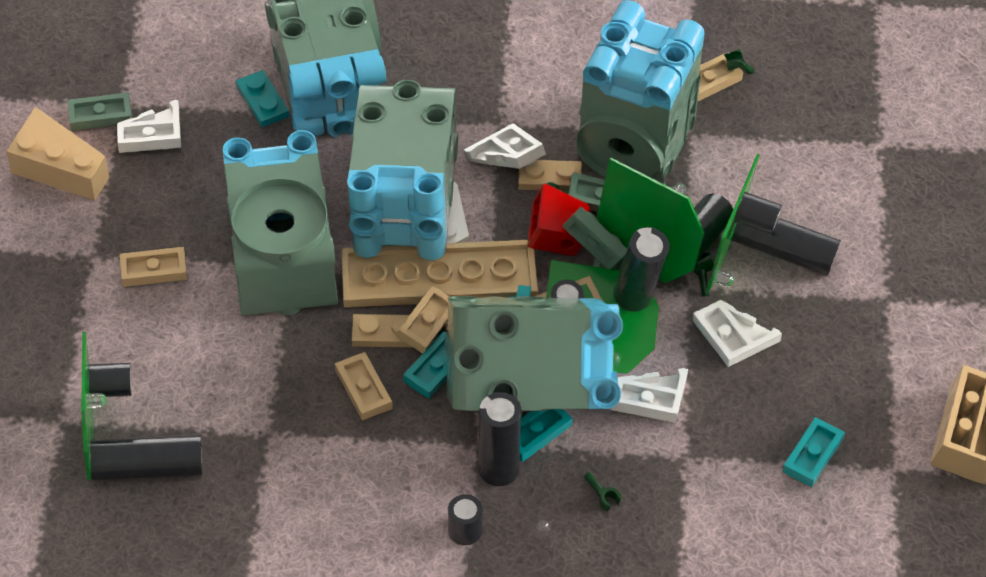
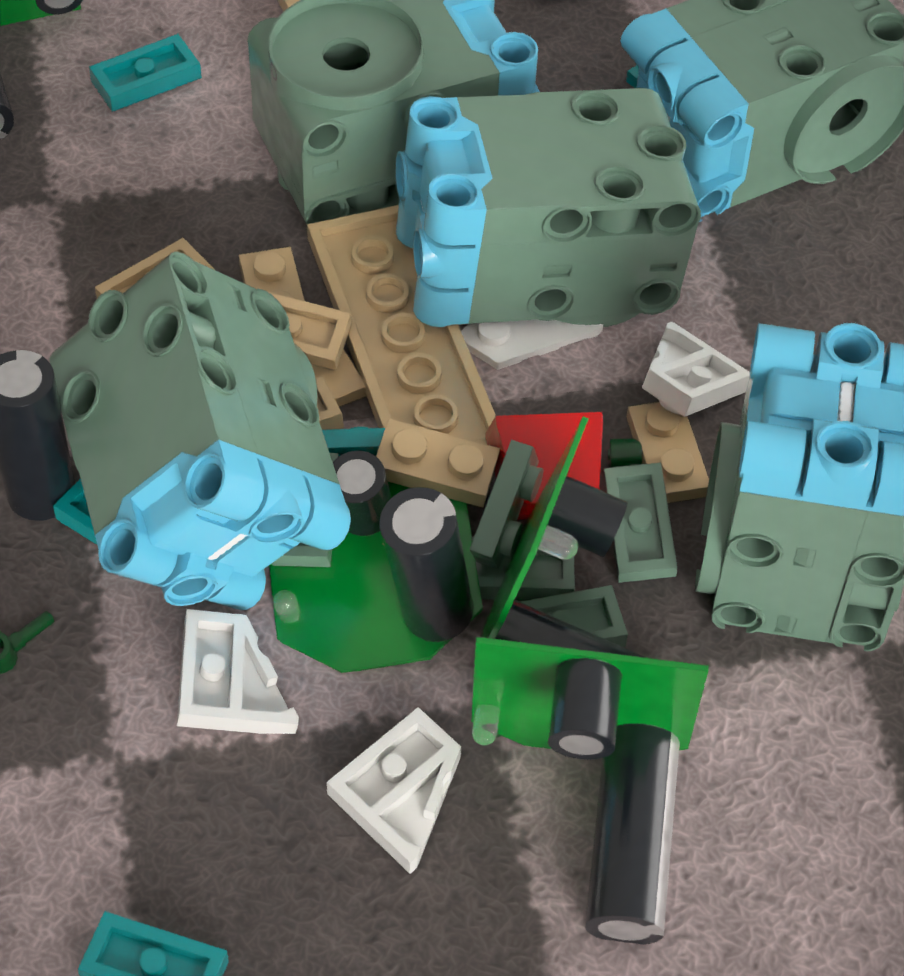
camera: 75 degrees right, 0 degrees up
(177, 364) = (145, 72): none -> teal plate
(550, 266) = (437, 461): none -> tan plate

